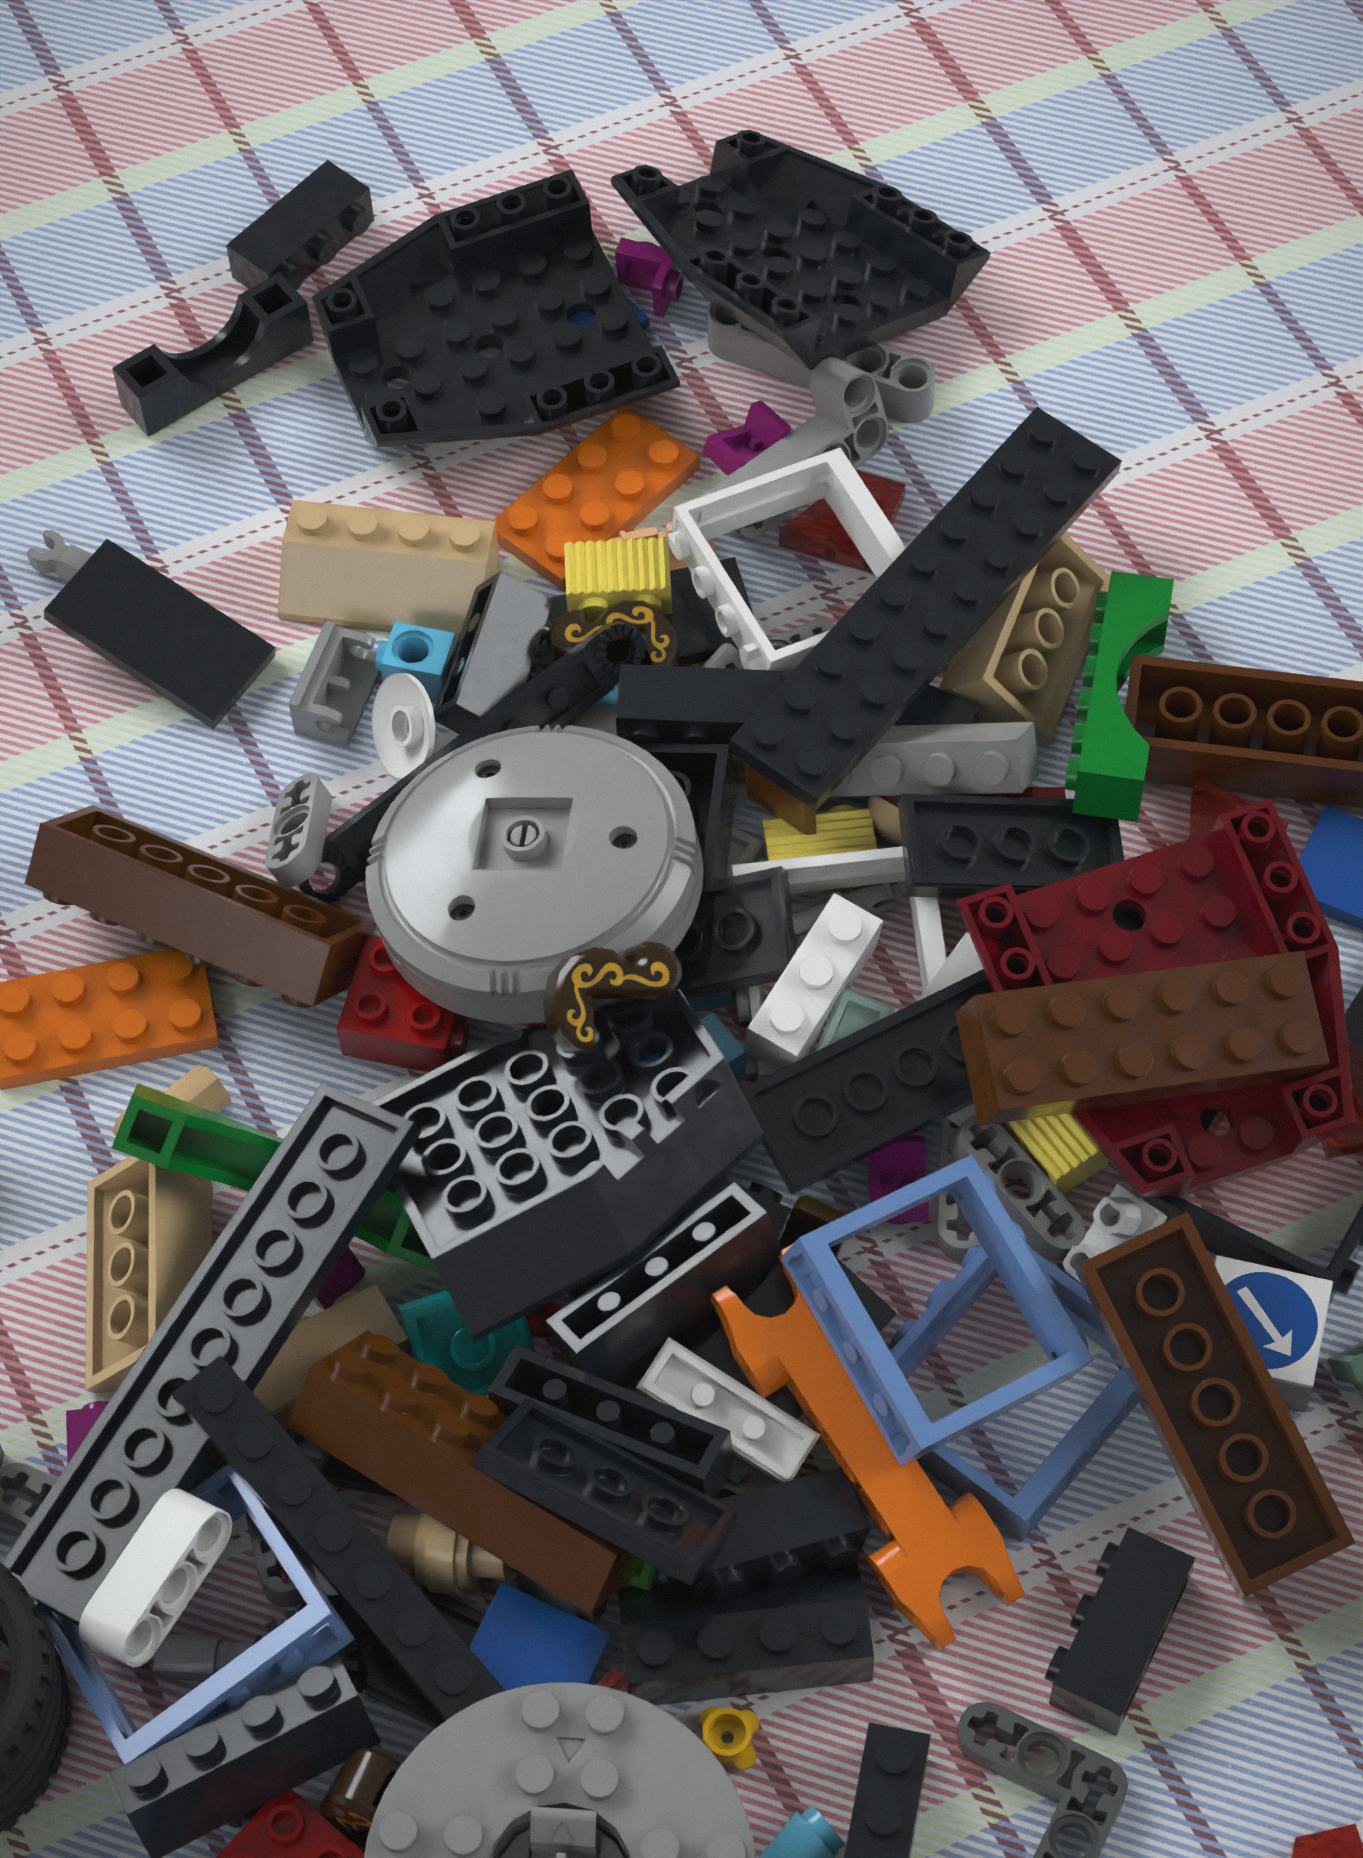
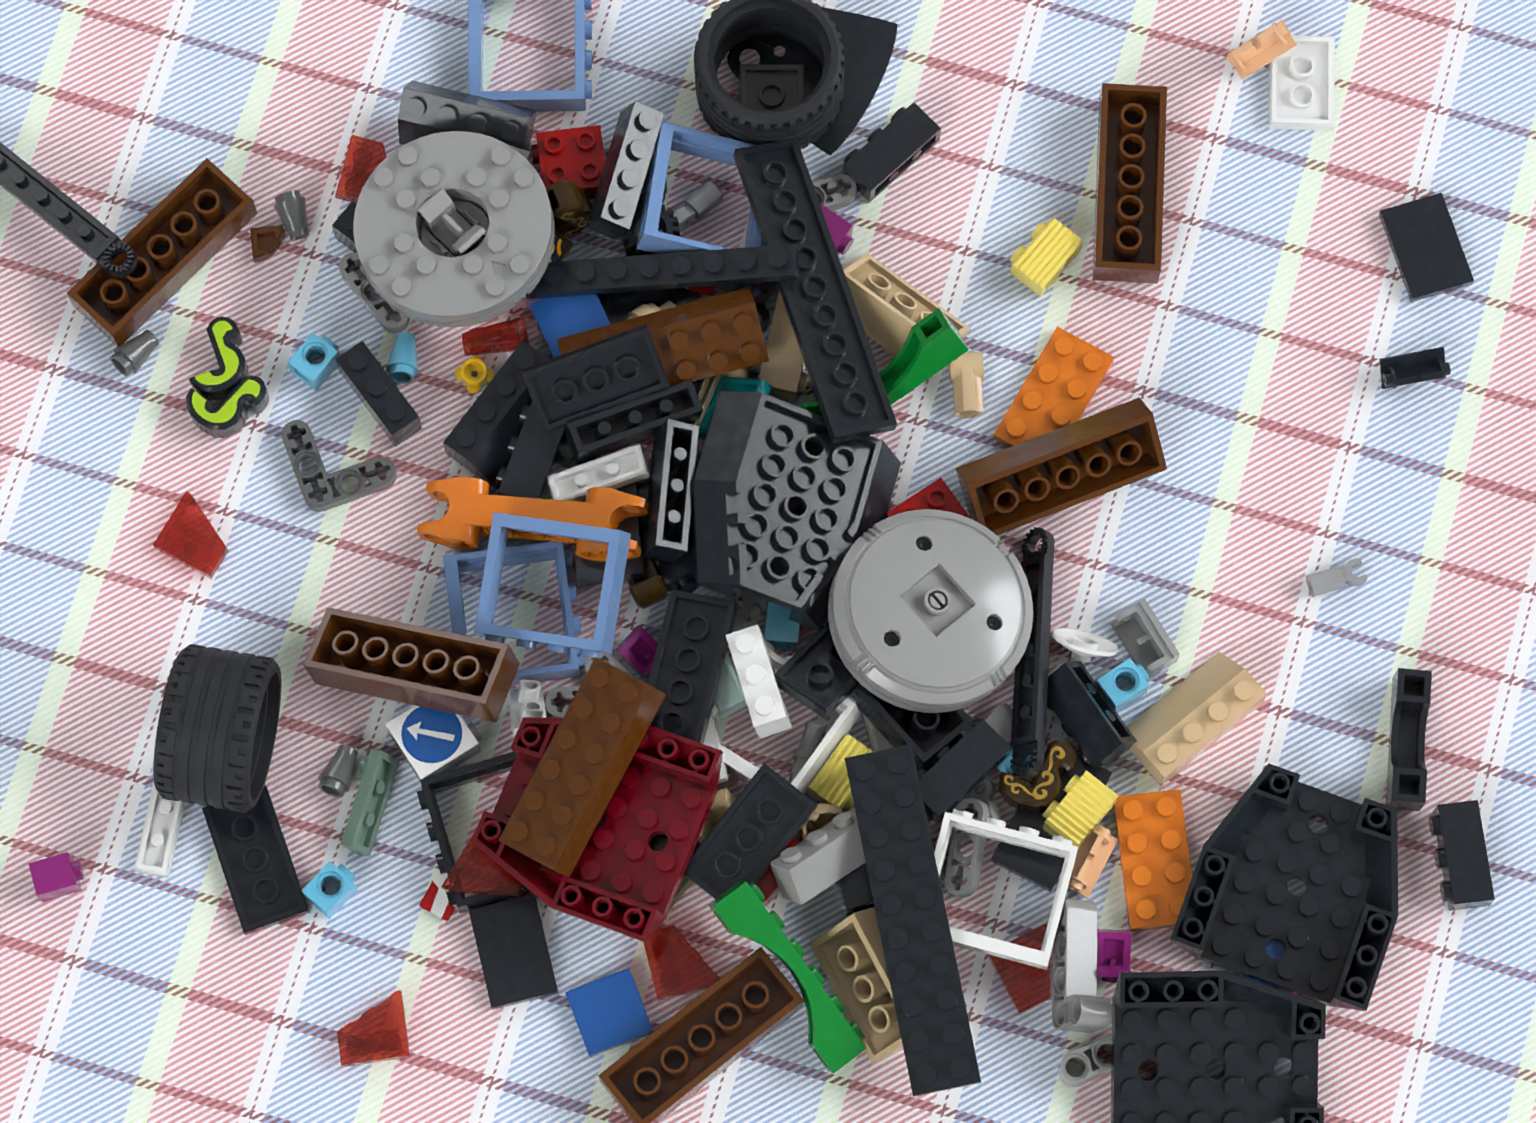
camera: 130 degrees right, 15 degrees up
(155, 1577) = (730, 189): white beam -> none
(159, 633) = (1250, 581): black tile -> none
(298, 830) = (1089, 569): light grey beam -> none
(603, 974) = (825, 568): dark brown animal -> none
(1118, 1629) = (369, 558): black brick -> none

